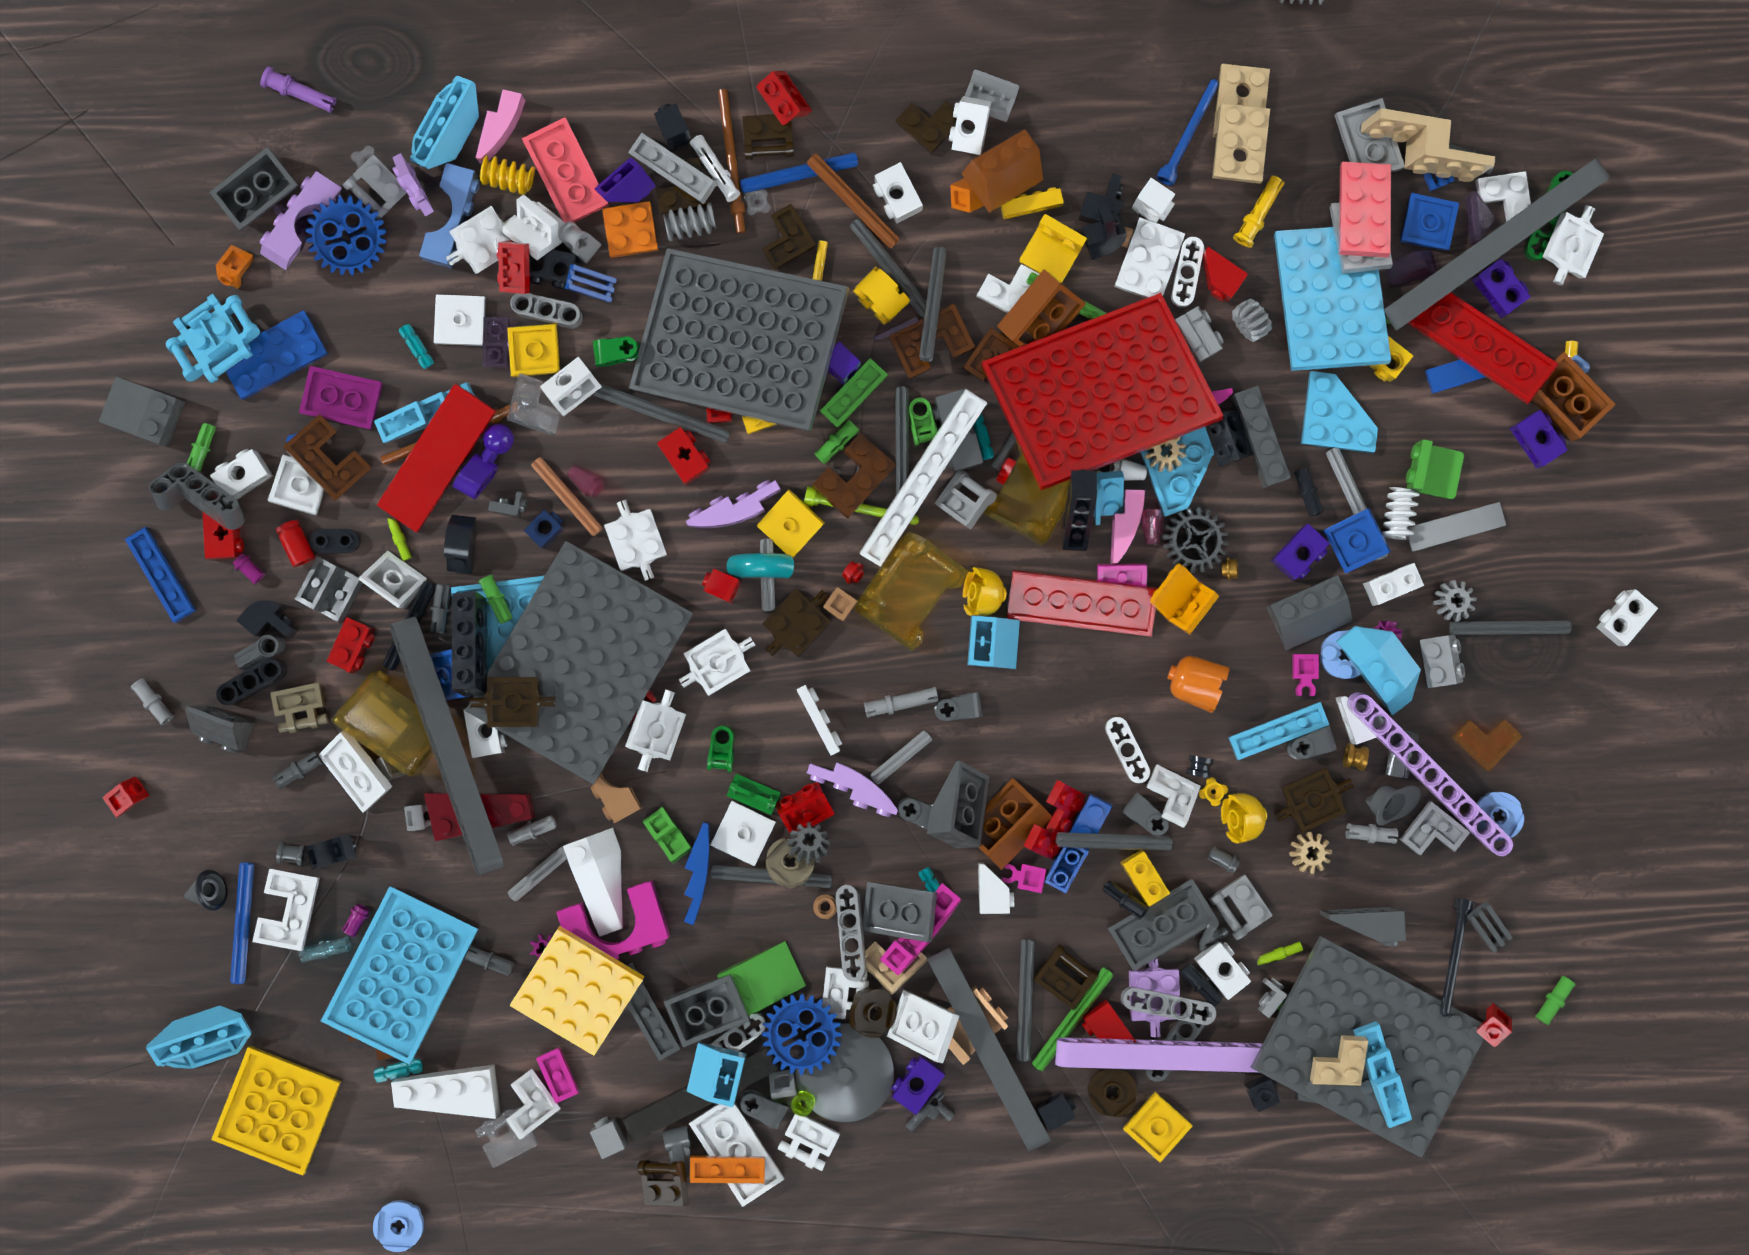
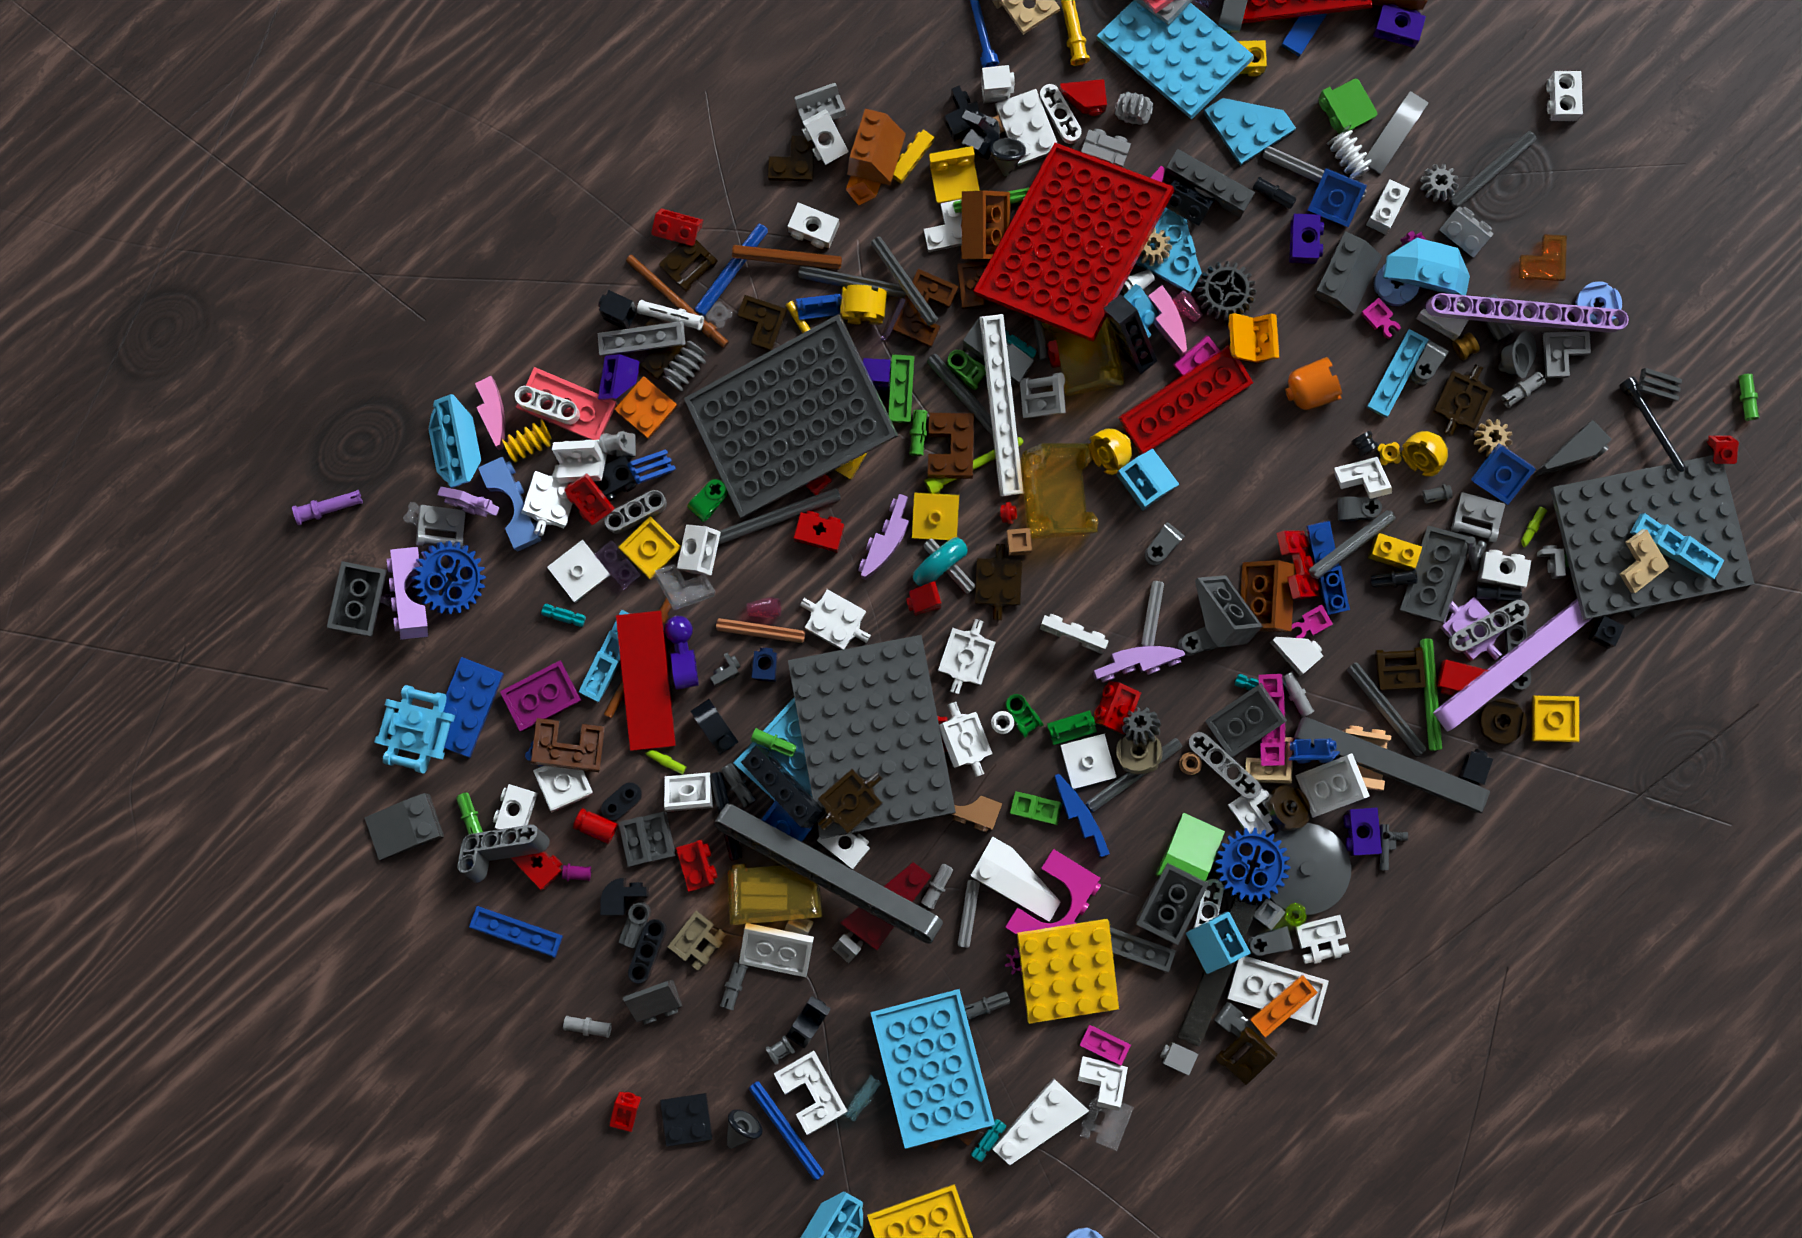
camera: 35 degrees left, 5 degrees down
(169, 844) = (686, 1119): none -> black plate
(233, 266) = (385, 668): orange bracket -> none
(355, 920) = (866, 1058): magenta pin -> none
(541, 148) = (540, 397): none -> white beam
(690, 742) = (1007, 717): none -> white cone
(844, 265) = (818, 306): none -> blue hinge
(900, 702) = (1113, 582): light grey pin -> none
(939, 992) = (1305, 752): none -> blue hinge
(962, 925) = (1297, 694): none -> light grey pin
(1112, 268) = (1007, 154): none -> dark grey hat
(1137, 752) = (1296, 479): white beam -> none
(1230, 569) = (1267, 290): pearl gold plate -> none
(1292, 890) = (1503, 474): none -> blue plate

